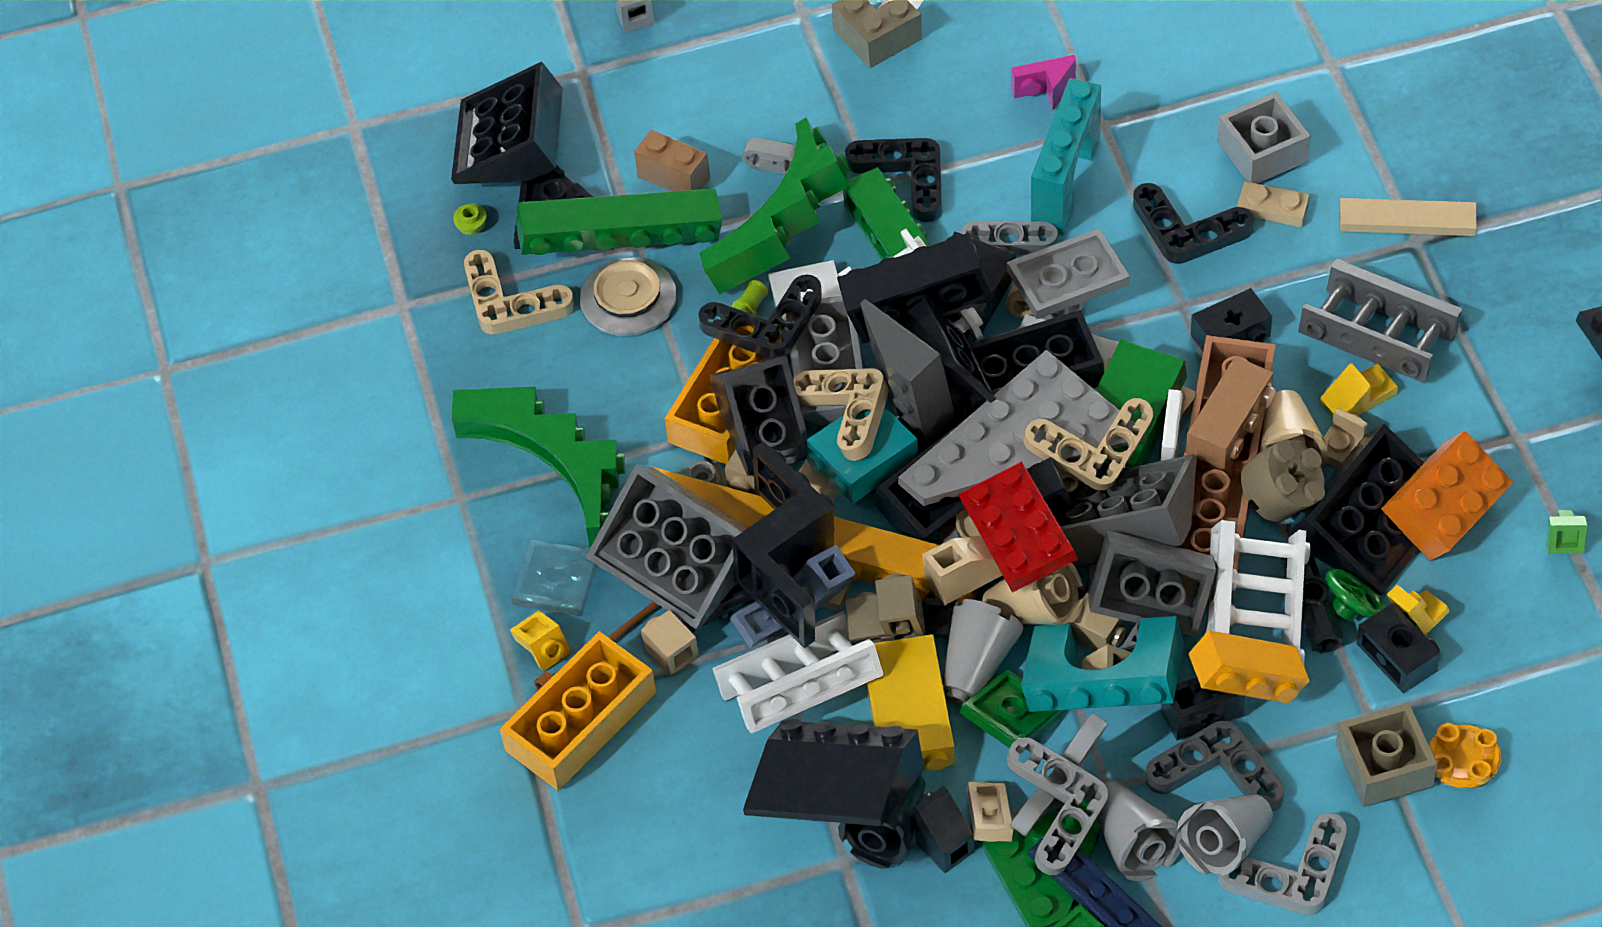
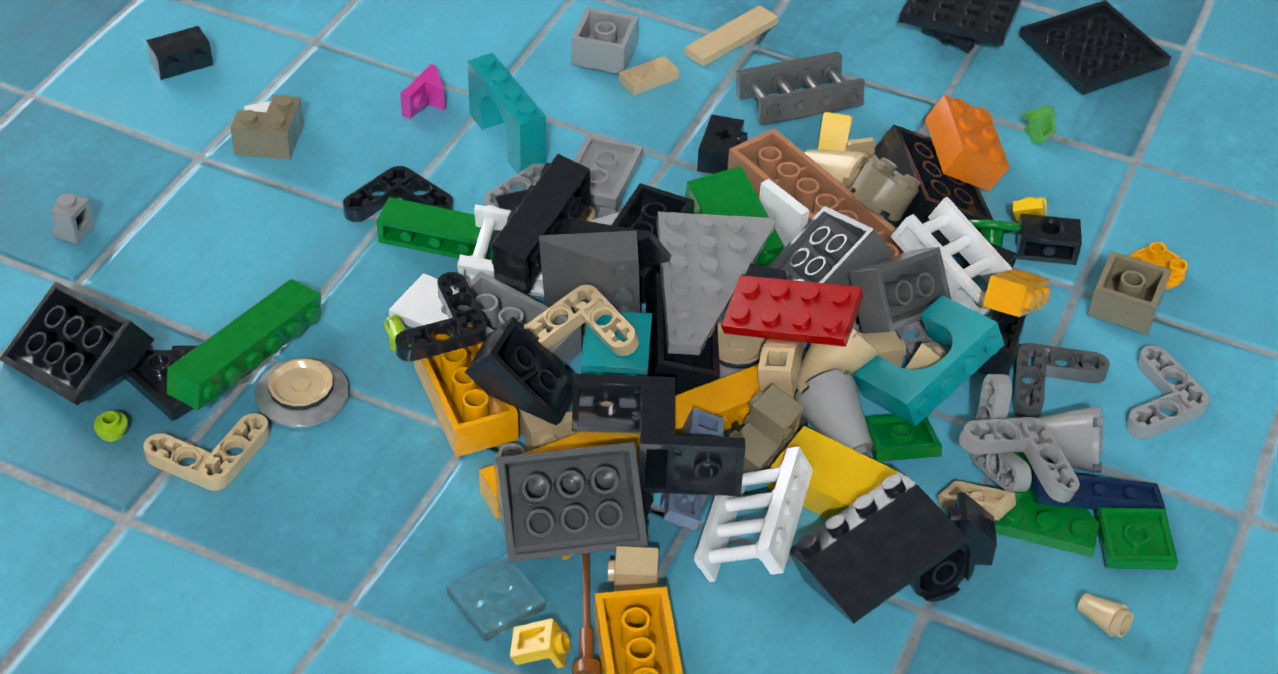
camera: 55 degrees left, 10 degrees down
(520, 420) = (377, 511): green arch -> none
(671, 163) = (230, 289): medium nougat brick -> none
(768, 155) = (298, 242): light grey beam -> none
(788, 211) = (369, 278): green arch -> none
(1090, 456) = (734, 255): tan beam -> none
(1180, 234) = (576, 116): black beam -> none
(1223, 832) = (1128, 395): light grey cone -> none
(1230, 413) = (811, 171): medium nougat brick -> none

